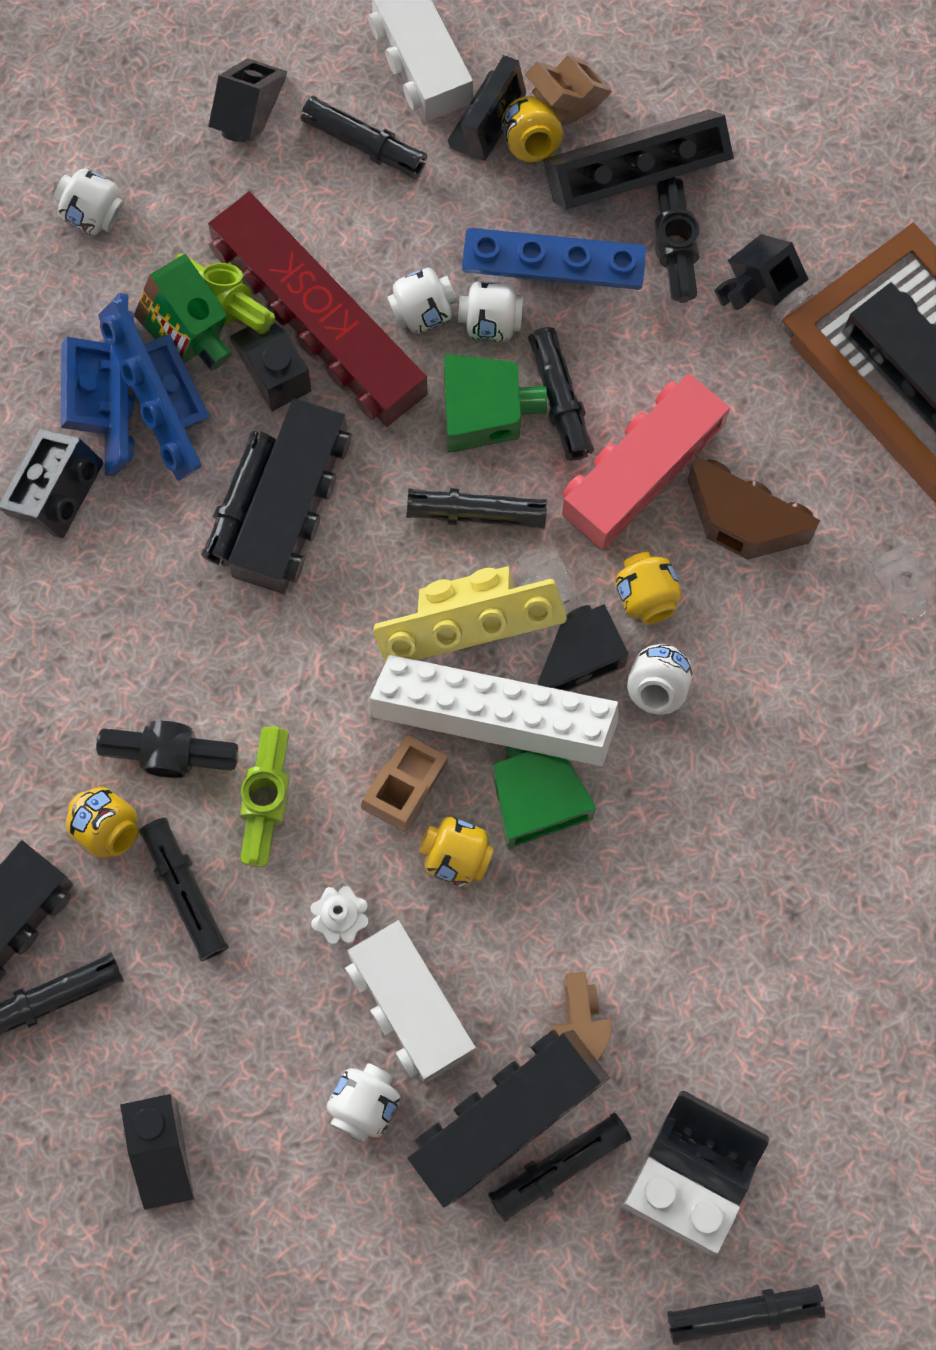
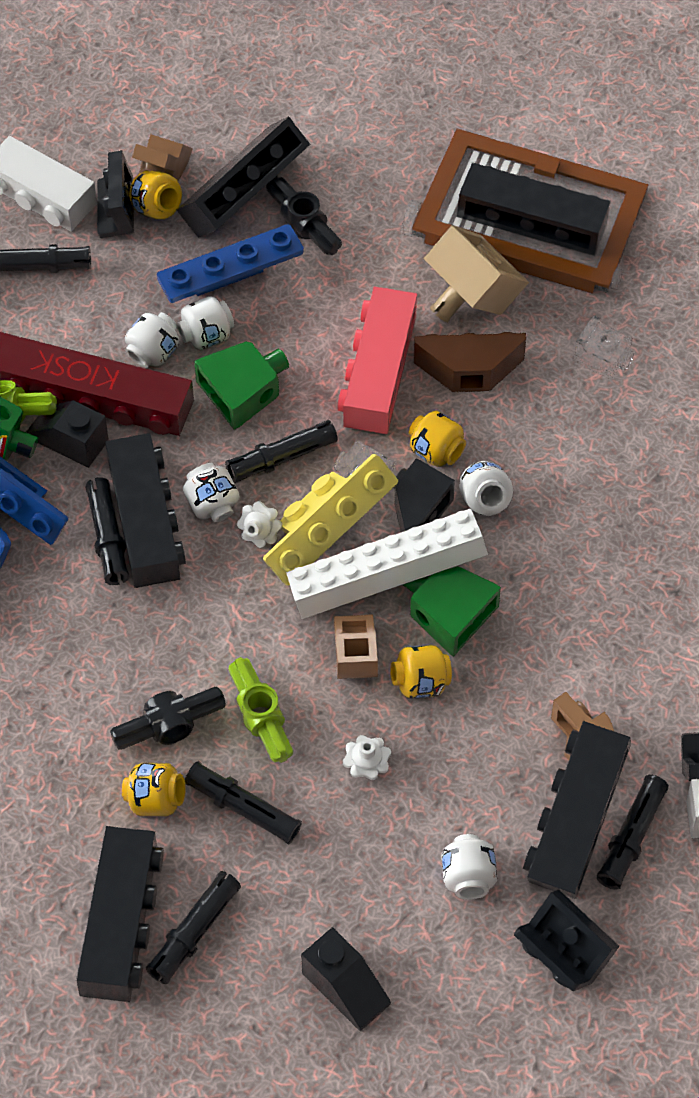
camera: 30 degrees left, 15 degrees down
(370, 516) = (211, 492): none -> white head
(398, 581) = (259, 524): none -> white plant
(403, 1252) = (566, 942): none -> black bracket
(409, 1003) = (457, 784): white brick -> none
(564, 405) = (302, 359): black pin -> none
(763, 271) = (379, 204): black brick -> none
(808, 416) = (474, 274): none -> tan brick

